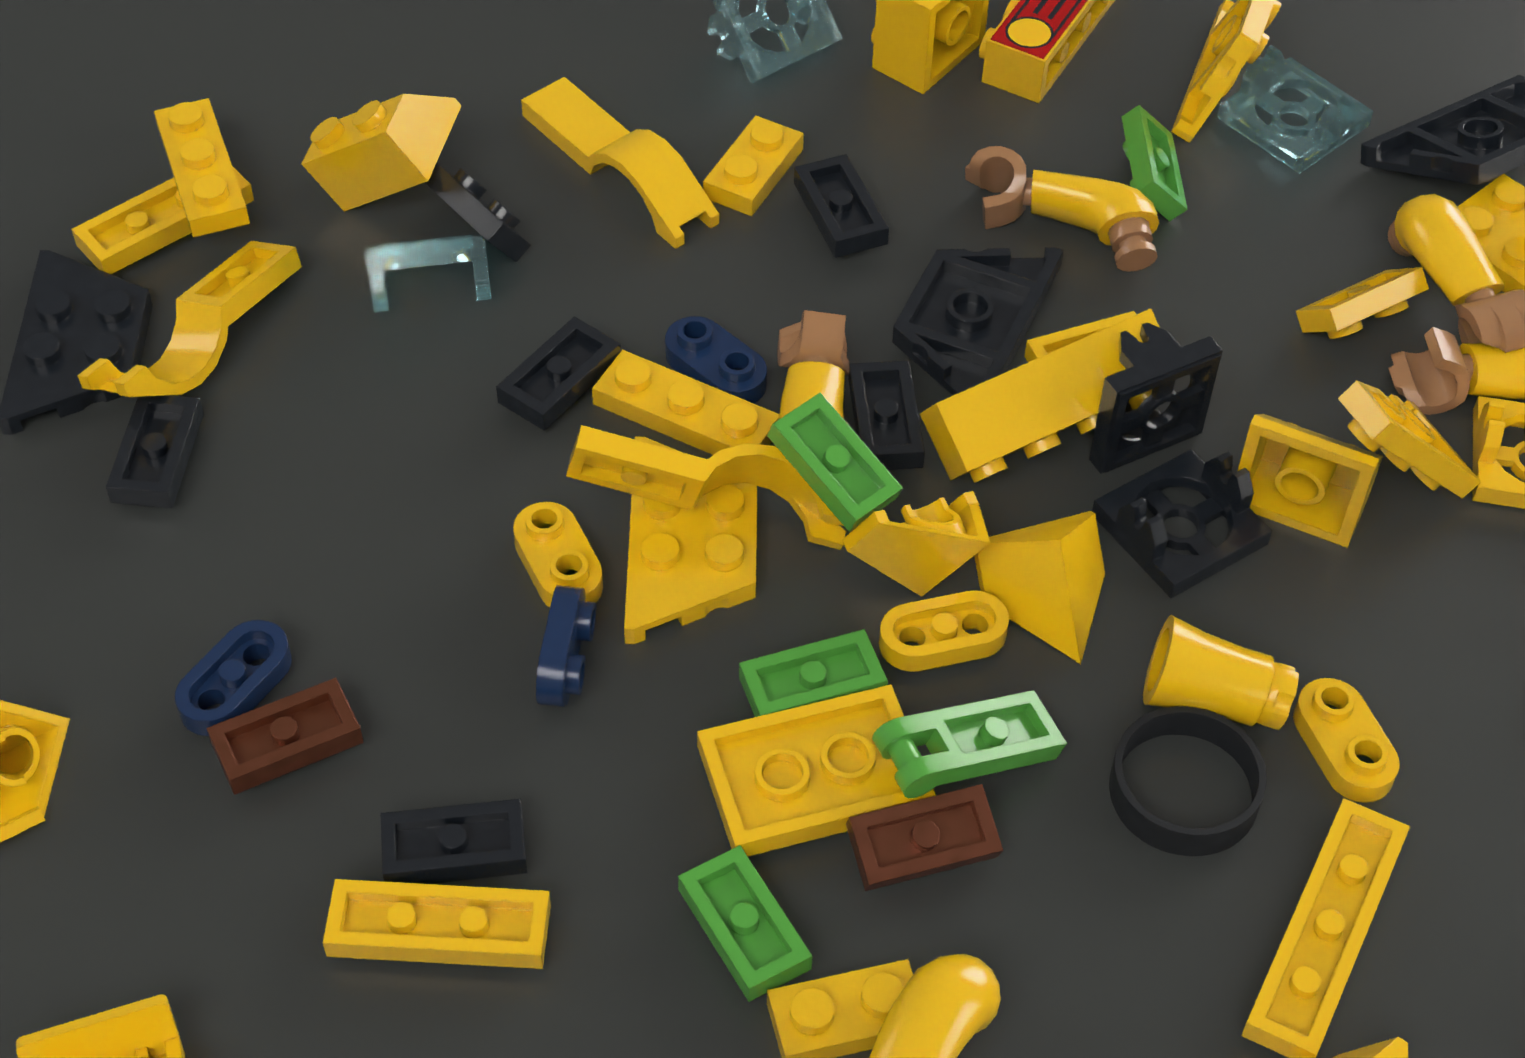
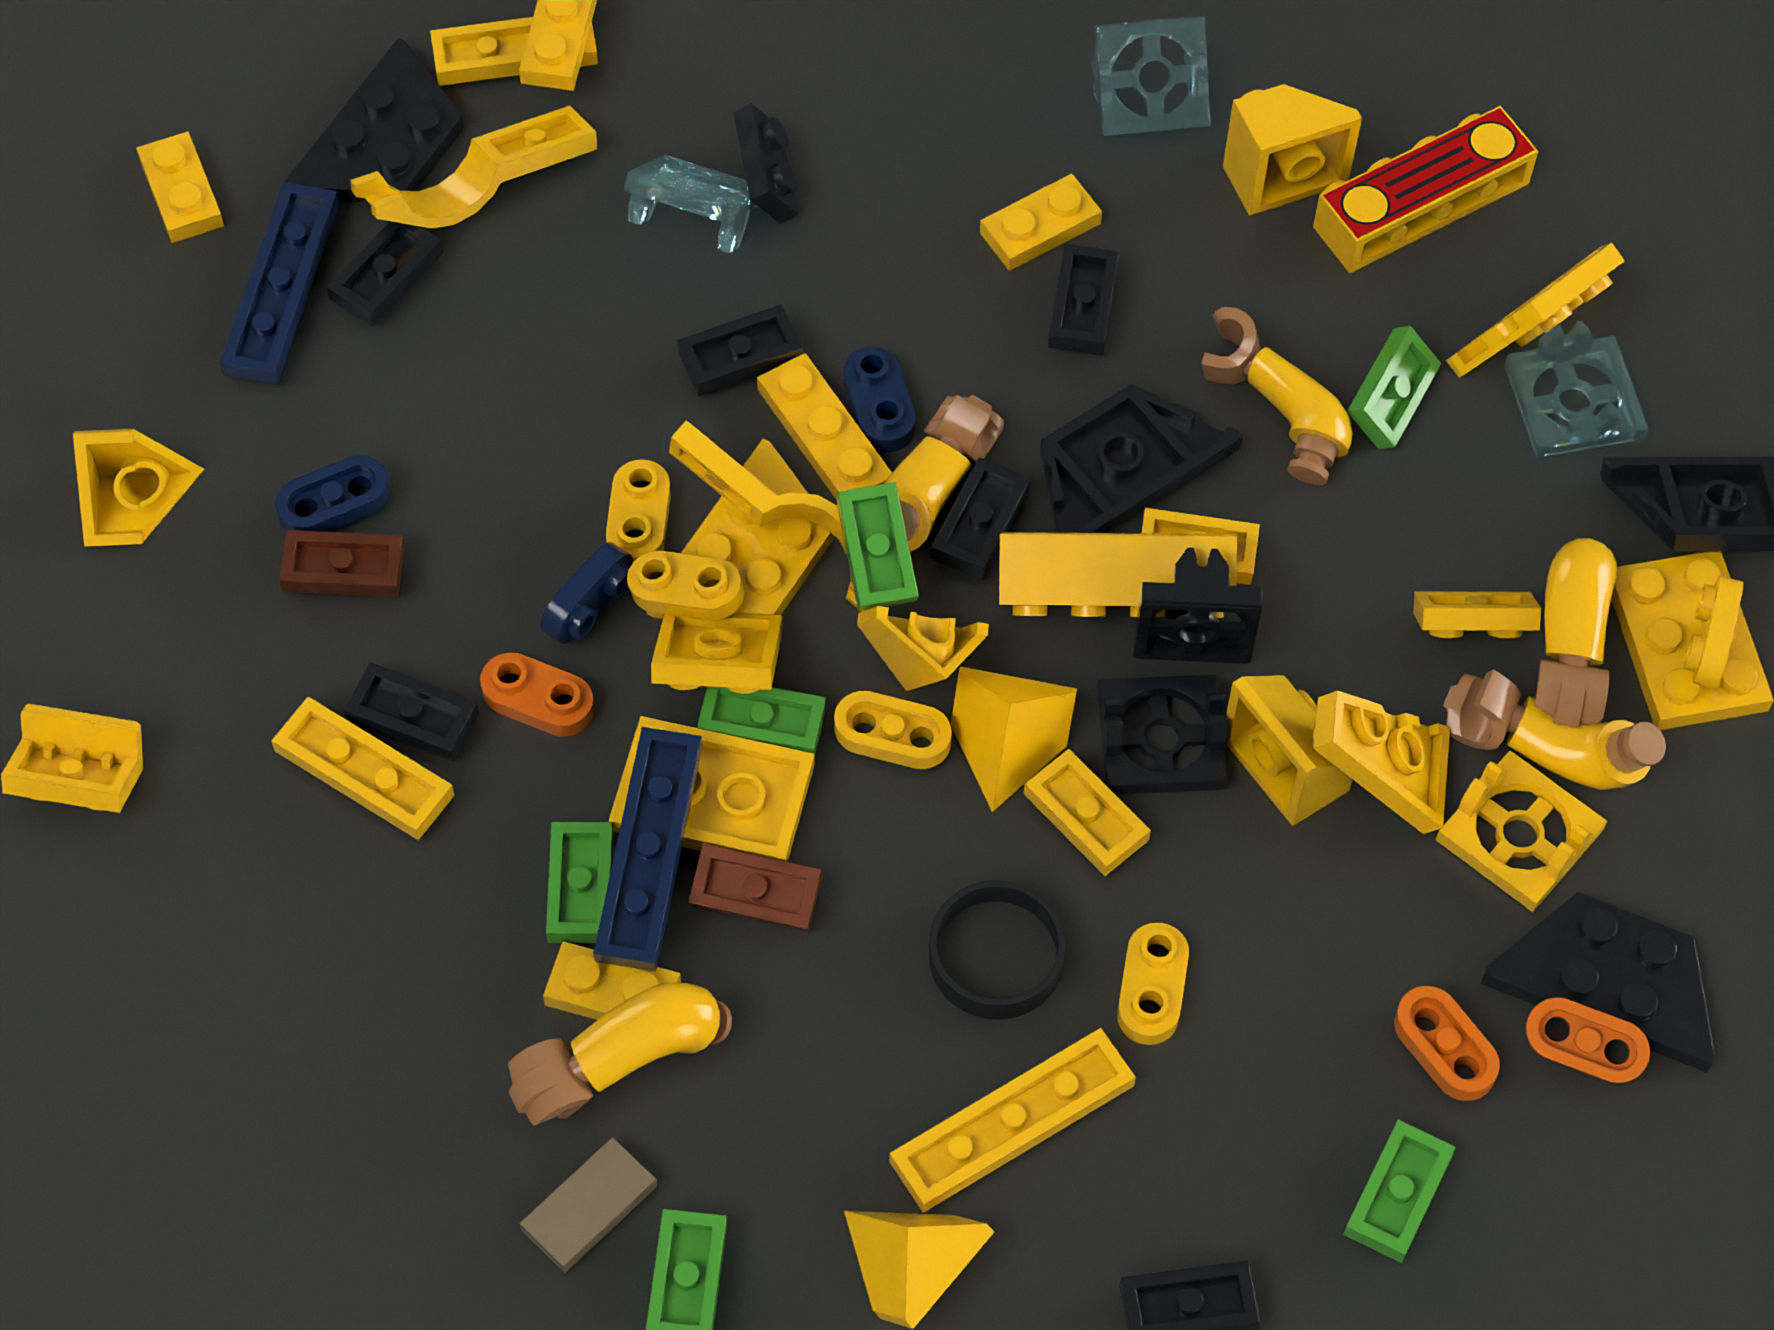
camera: 30 degrees right, 10 degrees up
(50, 509) = (279, 283): none -> dark blue plate
(380, 147) = (716, 69): yellow slope -> none
(570, 766) = (533, 694): none -> orange plate
(642, 156) = (928, 159): yellow piece -> none
(659, 591) = (682, 587): none -> yellow plate
(733, 634) = (719, 653): none -> yellow plate
(805, 851) = (648, 849): none -> dark blue plate
(969, 741) = (839, 831): bright green plate -> none
(1144, 602) = (1087, 812): none -> yellow plate
(1218, 676) = (1075, 880): yellow plant -> none

